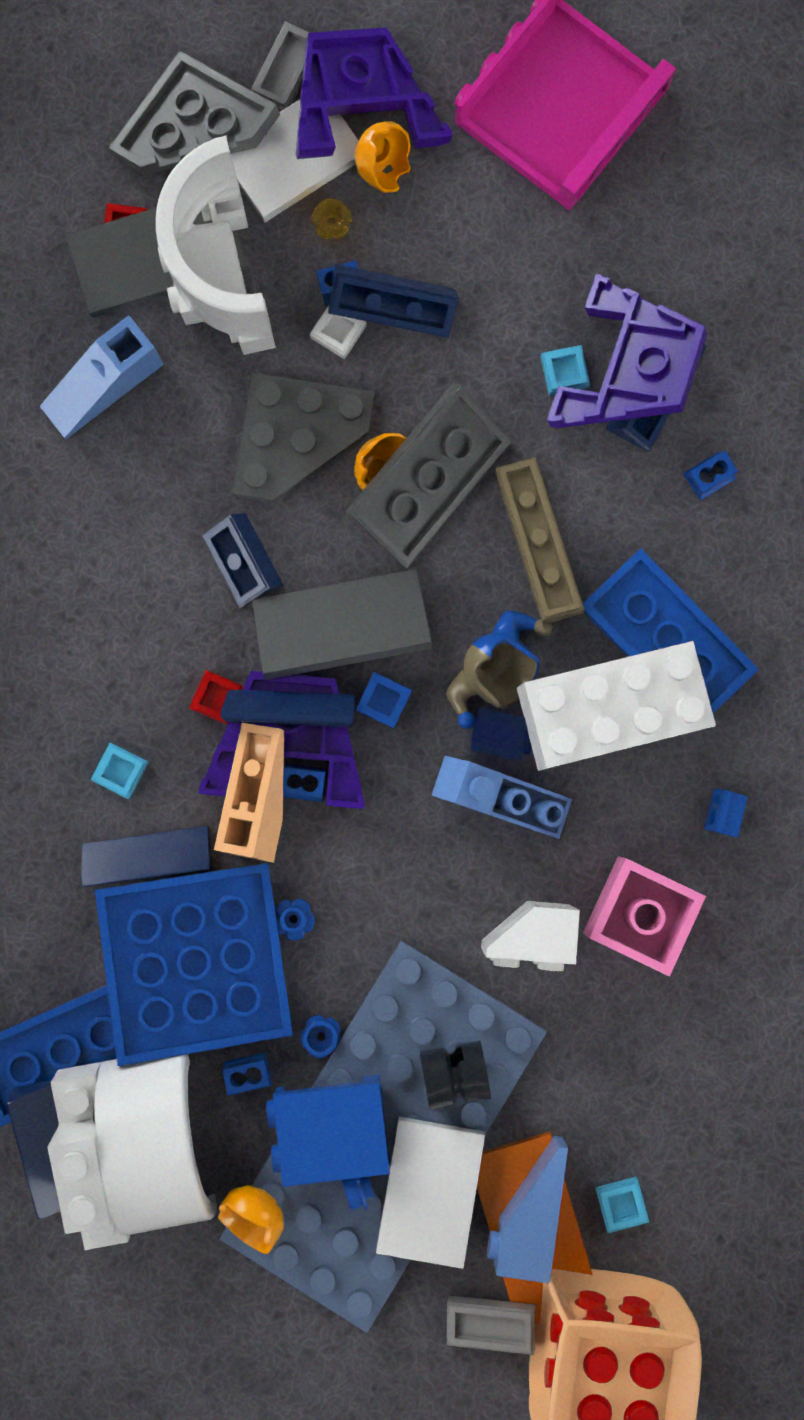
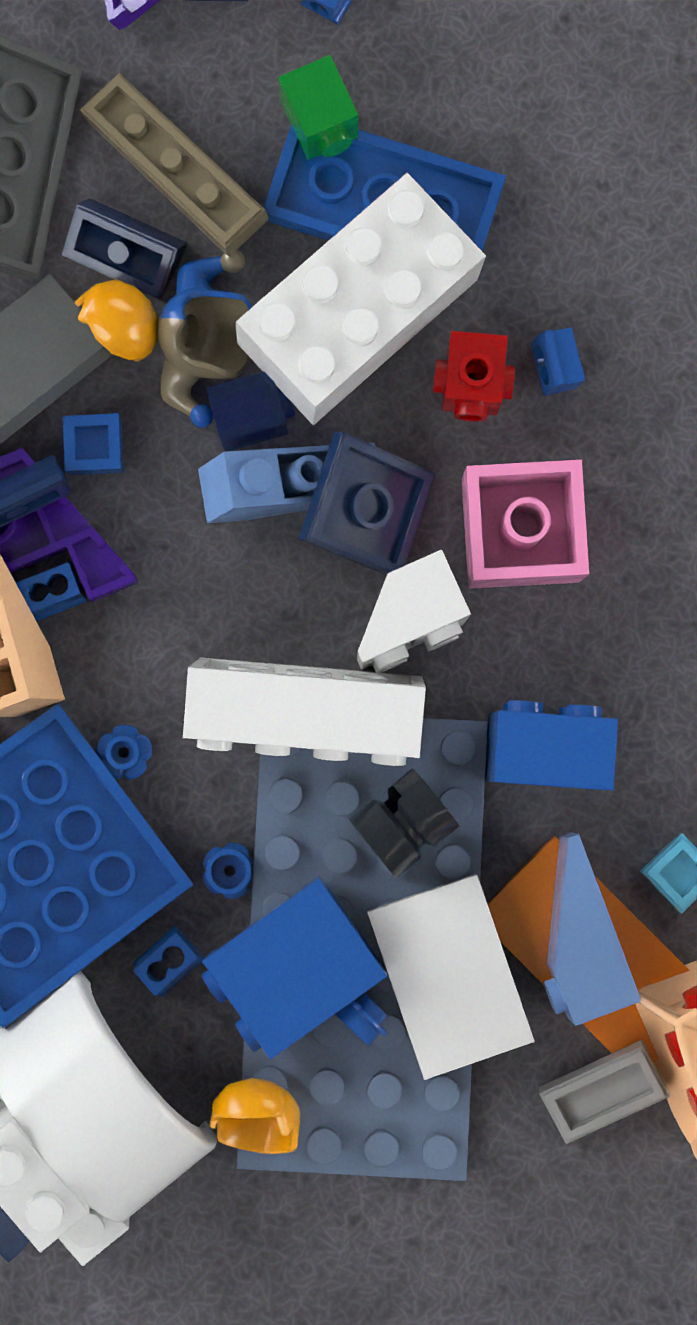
camera: 30 degrees left, 0 degrees up
(432, 961) = (304, 709): none -> white slope
(447, 629) = (120, 318): none -> light orange hair
(474, 576) = (123, 247): none -> dark blue slope
(544, 842) = (366, 504): none -> dark blue tile
(579, 1080) = (551, 749): none -> blue brick
(657, 560) = (319, 108): none -> green brick
(678, 789) = (478, 357): none -> red brick

